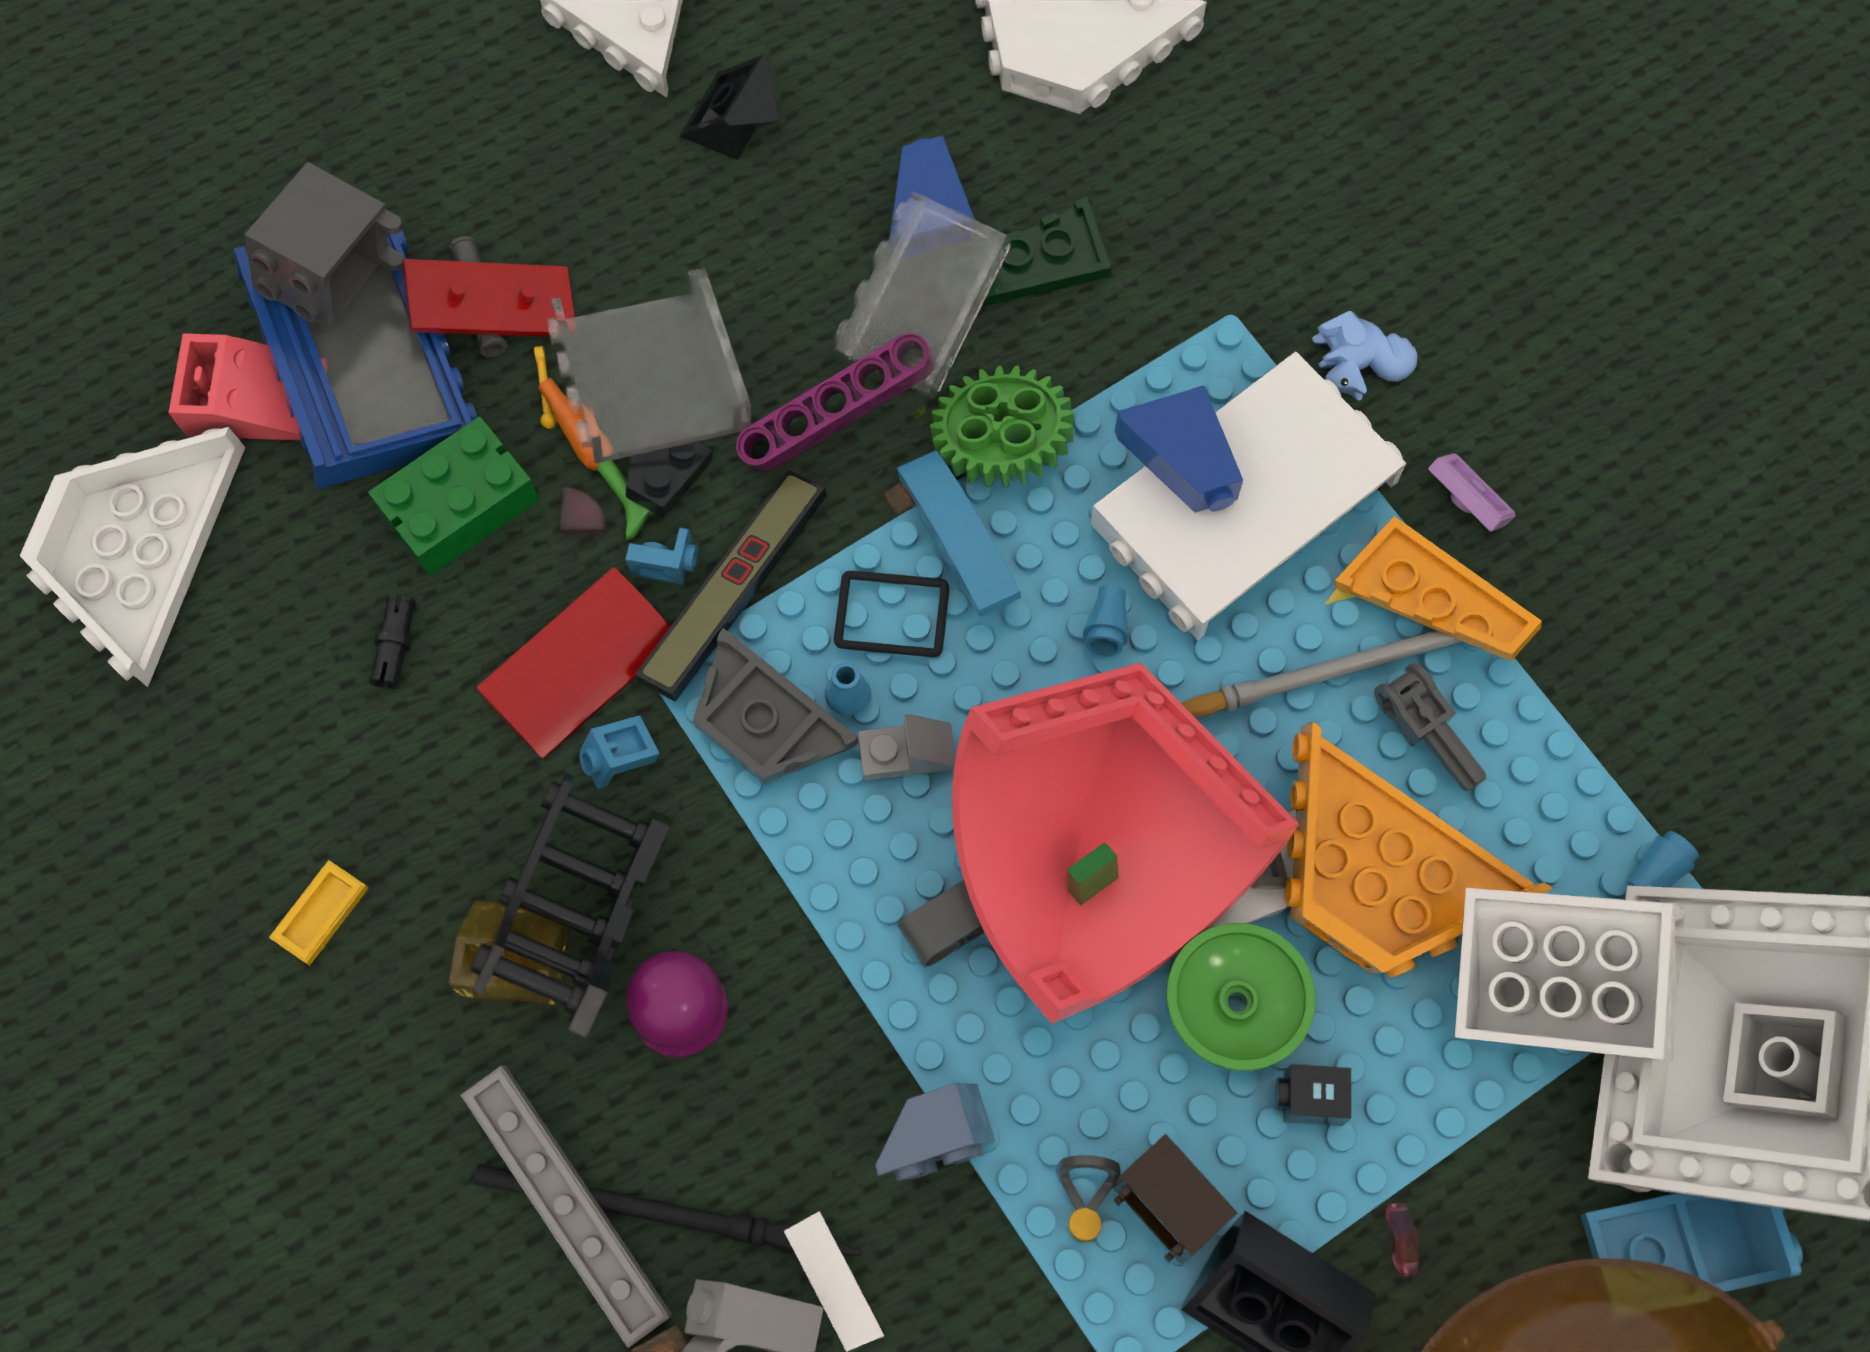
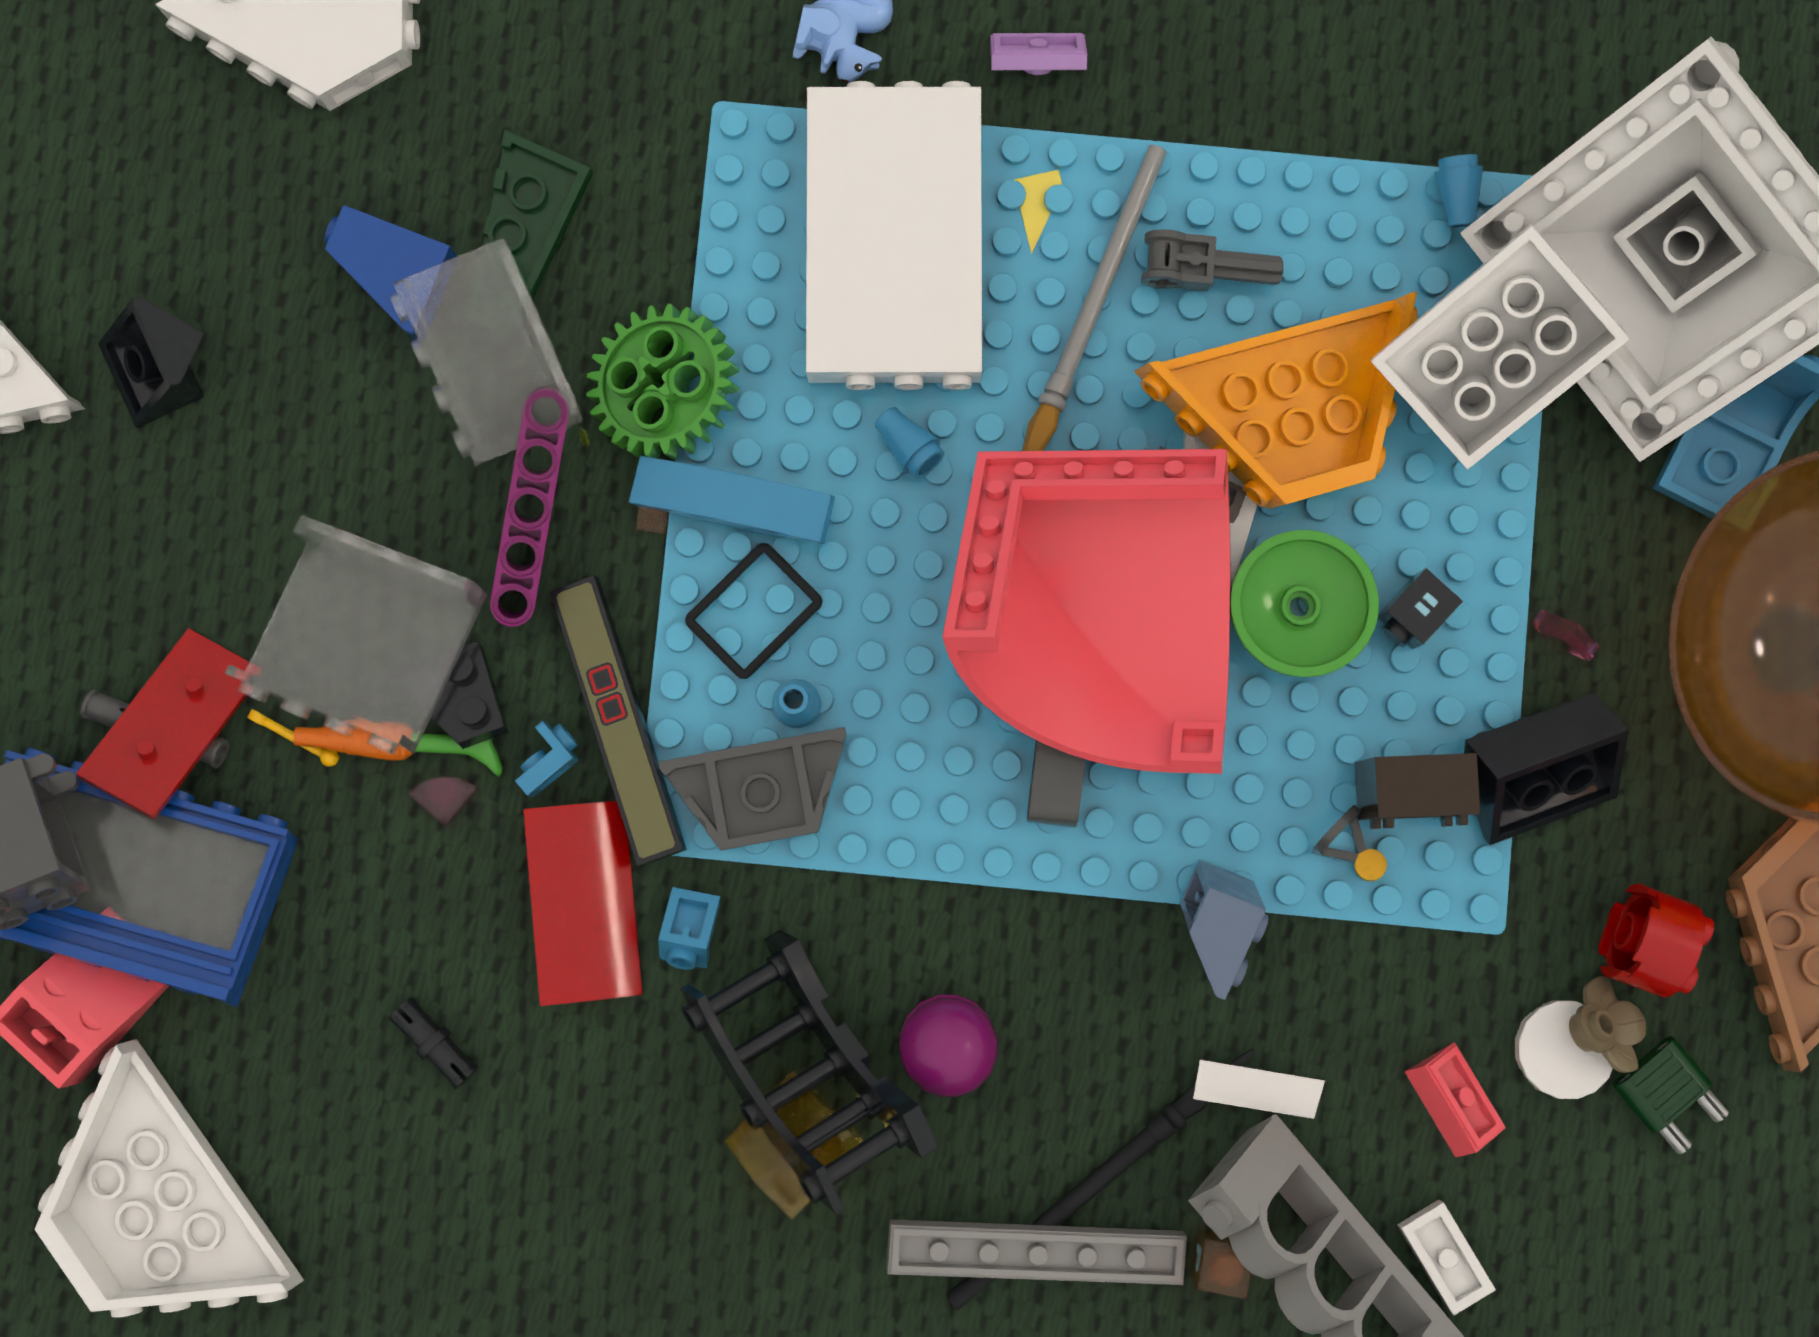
camera: 50 degrees left, 15 degrees up
(318, 912) = (629, 1275): yellow tile -> none
(454, 496) = (340, 894): green piece -> none
(907, 750) = (883, 694): light grey slope -> none
(1092, 873) = (1116, 636): green tile -> none
(1183, 448) = (824, 257): blue slope -> none
(1430, 587) = (1096, 161): light orange wing -> none

